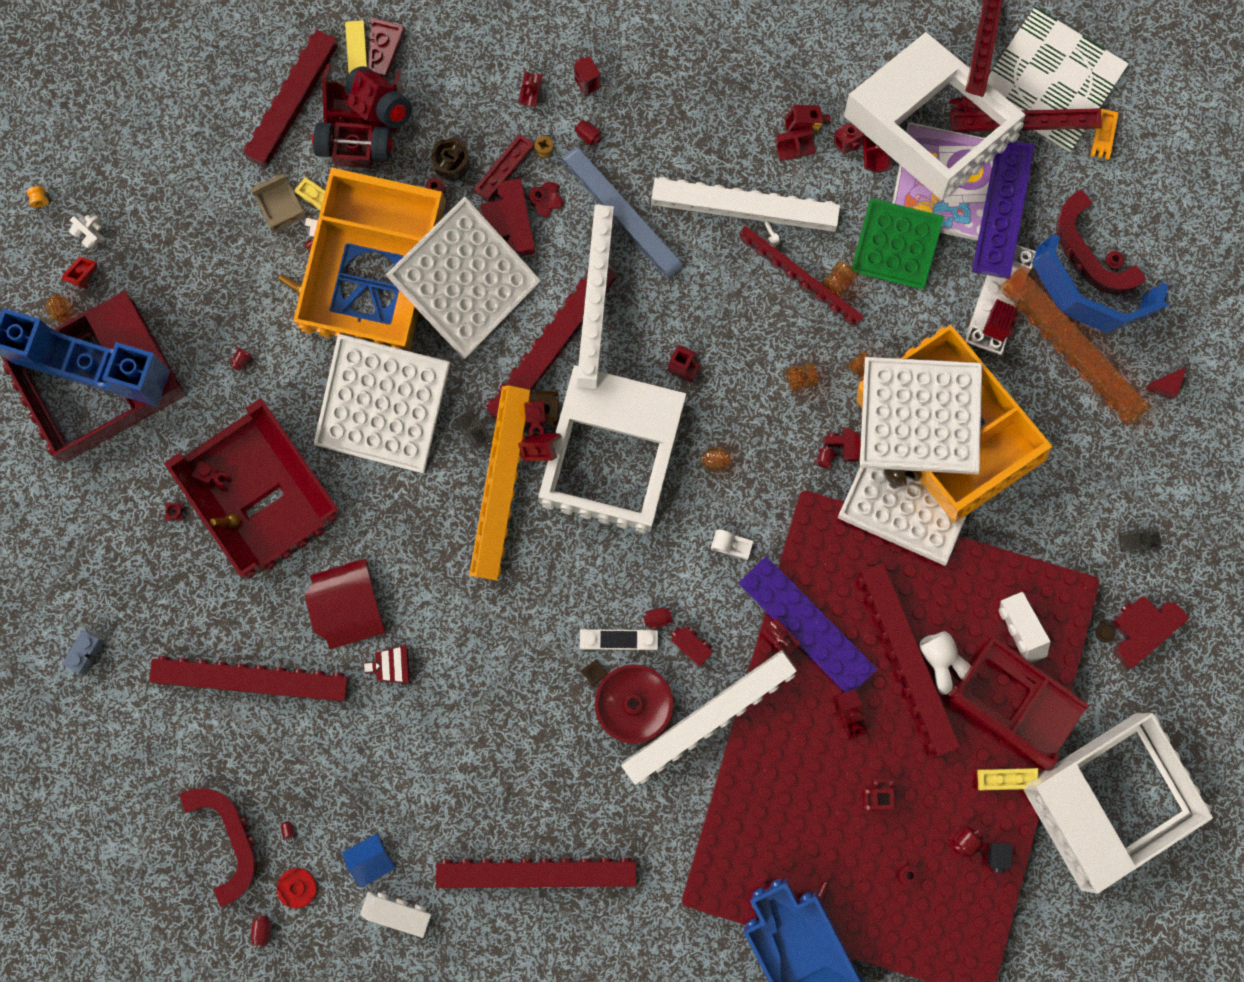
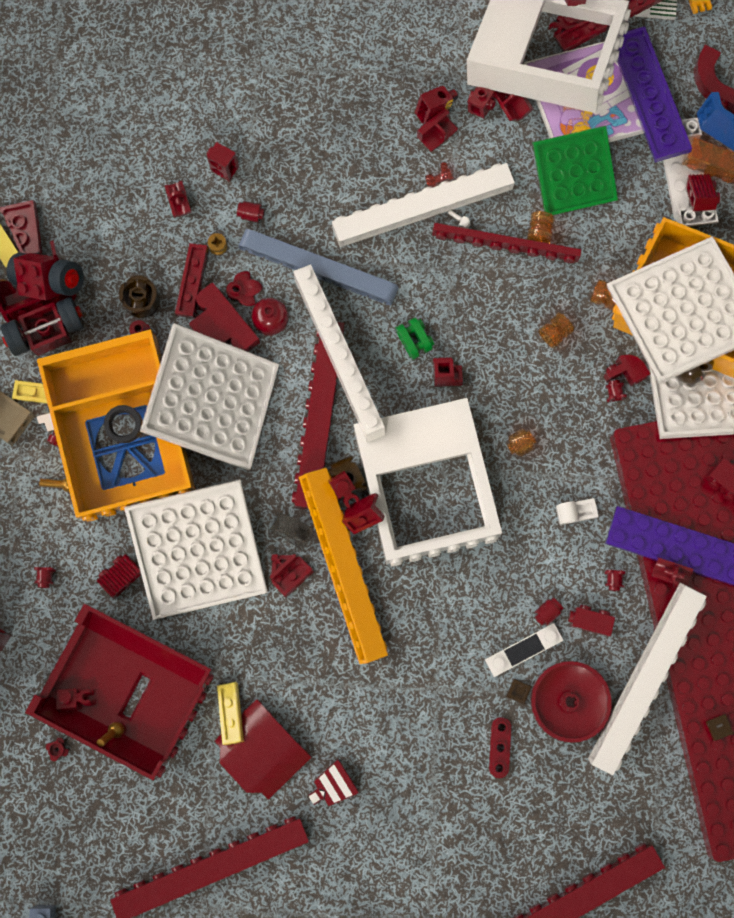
camera: 25 degrees left, 0 degrees up
(304, 392) = (119, 576): none -> dark red brick
(335, 558) = (230, 713): none -> light yellow tile
(366, 250) = (113, 413): none -> black tyre
(451, 466) = (288, 572): none -> dark red slope
(546, 719) = (499, 737): none -> dark red plate
(555, 234) = (270, 316): none -> dark red cylinder
(679, 327) = (417, 328): none -> green brick
(731, 621) = (614, 580): none -> dark red brick
(748, 792) = (719, 727): none -> dark brown tile
(781, 186) = (445, 174): none -> clear red piece

